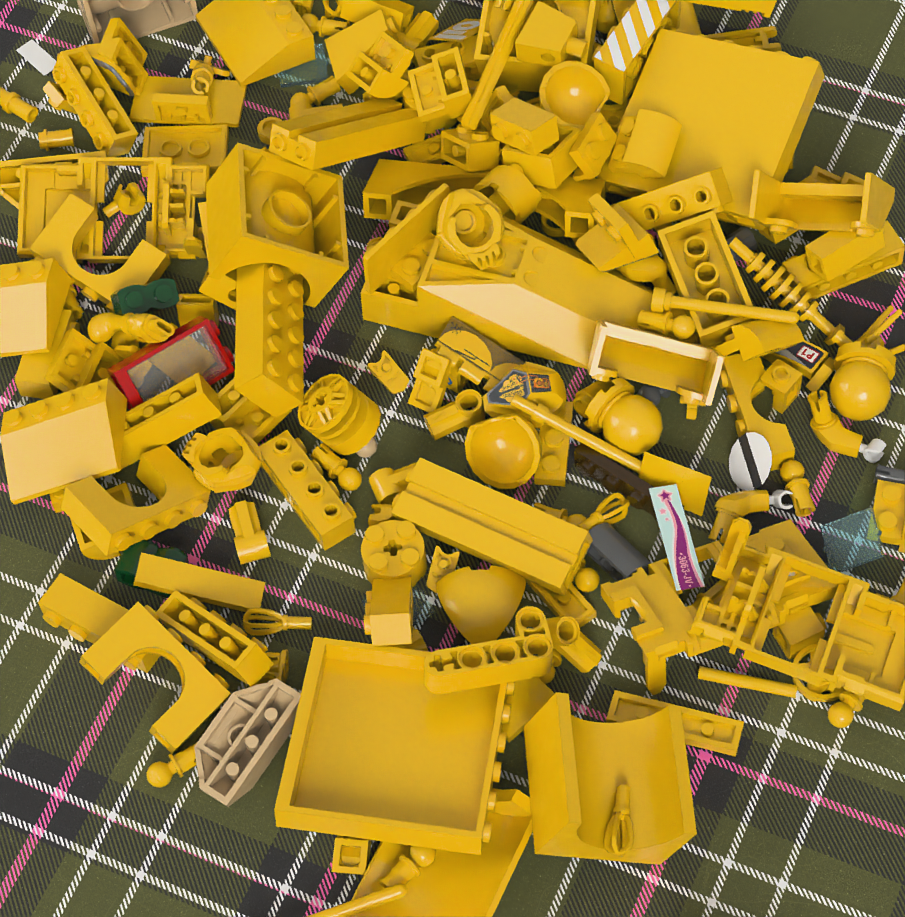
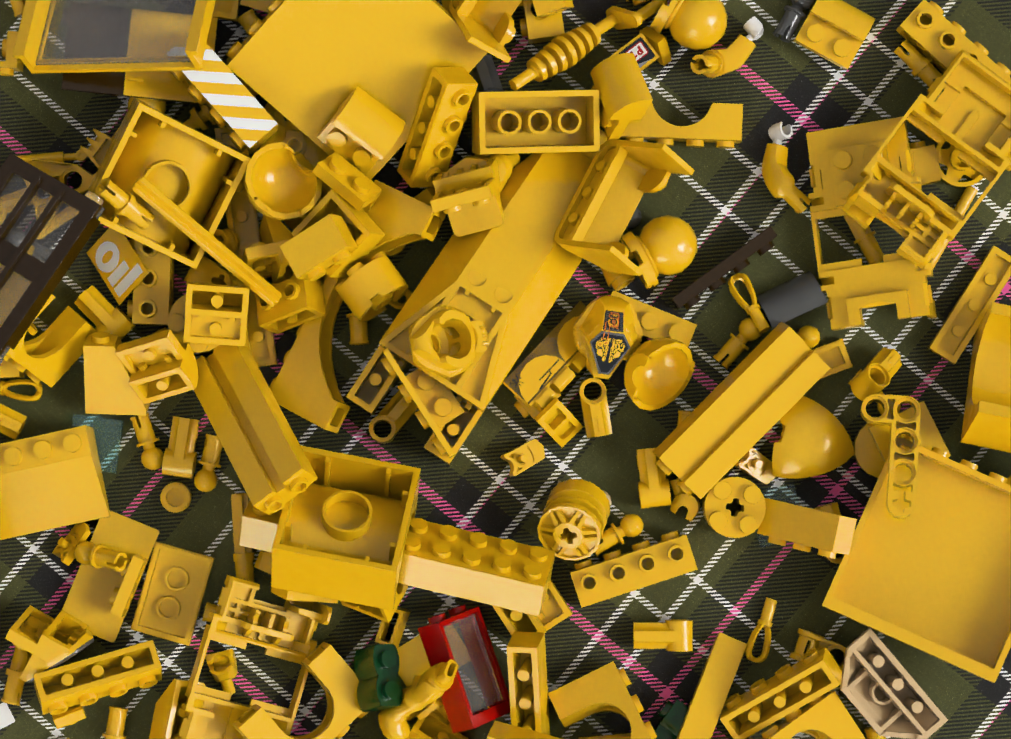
camera: 75 degrees left, 30 degrees up
(224, 459) = (587, 641): yellow helmet -> none
(323, 26) = (46, 421): yellow pin -> none
(541, 414) = (646, 329): yellow bar -> none
(549, 37) = (213, 185): yellow torso -> none
(665, 300) = (556, 171): yellow piece -> none
(676, 537) = (804, 244): sticker -> none
(681, 326) = (586, 165): yellow pin -> none
(691, 484) = (739, 227): yellow sticker -> none
(750, 461) = (738, 148): white sticker -> none
(783, 382) = (663, 89): yellow bracket -> none
(793, 473) = (756, 112): yellow pin -> none
(852, 540) = (847, 85): clear light blue piece -> none

